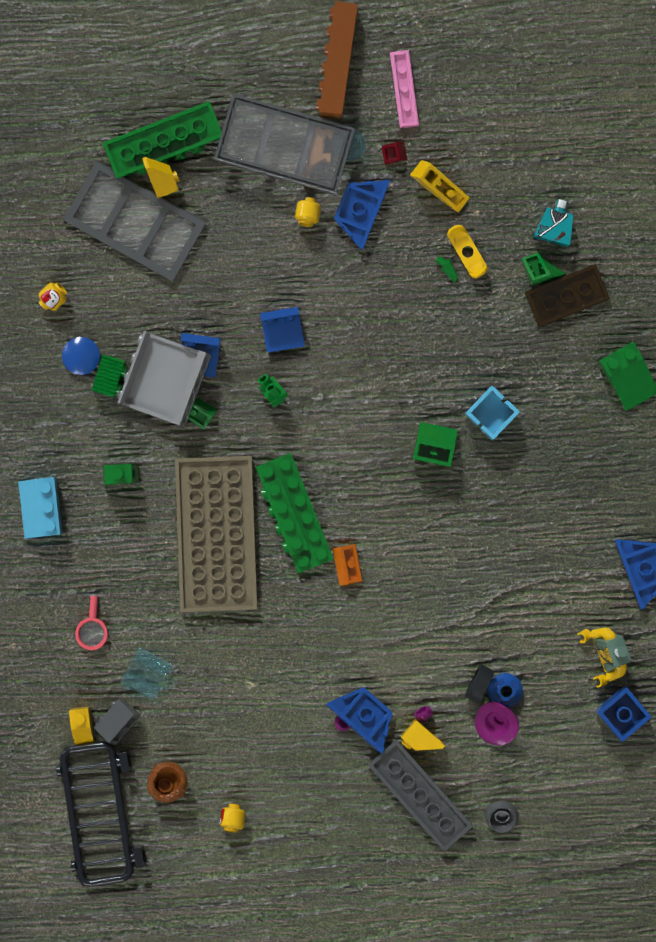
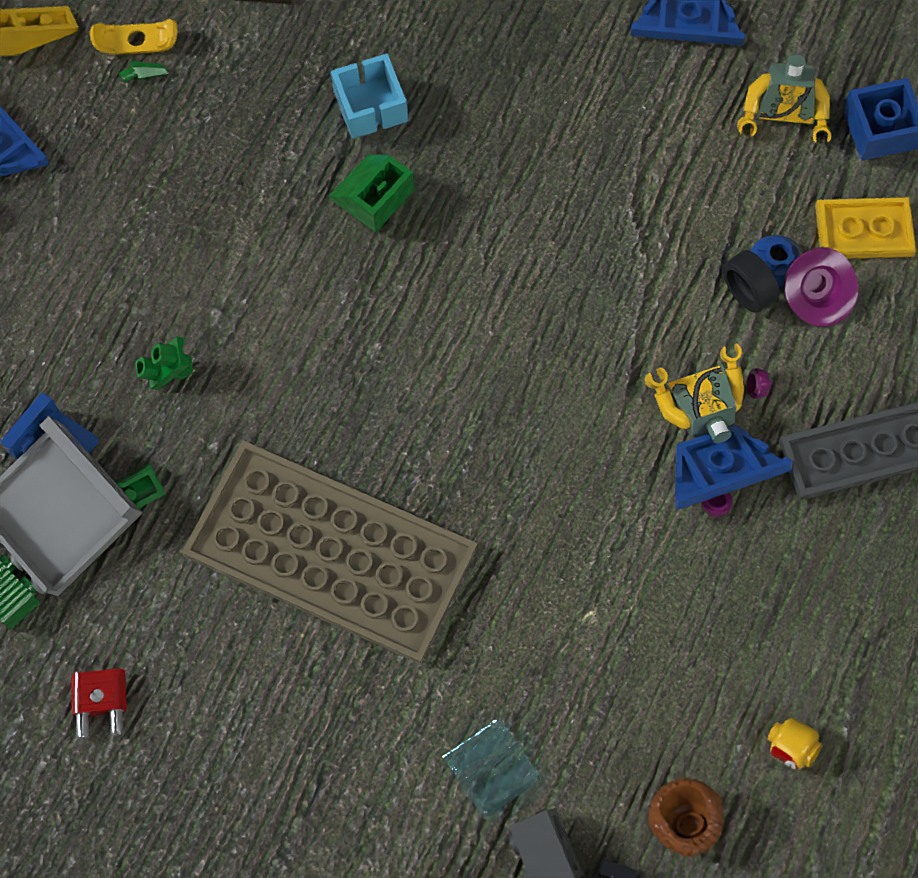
camera: 60 degrees left, 20 degrees down
(40, 507) = (134, 801): medium azure slope -> none
(82, 457) = (98, 694): none -> red piece
(92, 632) = (378, 822): piece -> none
(120, 474) = (155, 647): green torso -> none
(282, 329) = (85, 312): blue bracket -> none
(293, 513) = (362, 425): green plate -> none
(347, 565) = (479, 389): orange slope -> none
(396, 689) = (703, 400): none -> torso
(420, 738) = (792, 402): yellow slope -> none
(551, 730) = (866, 227): none -> yellow tile

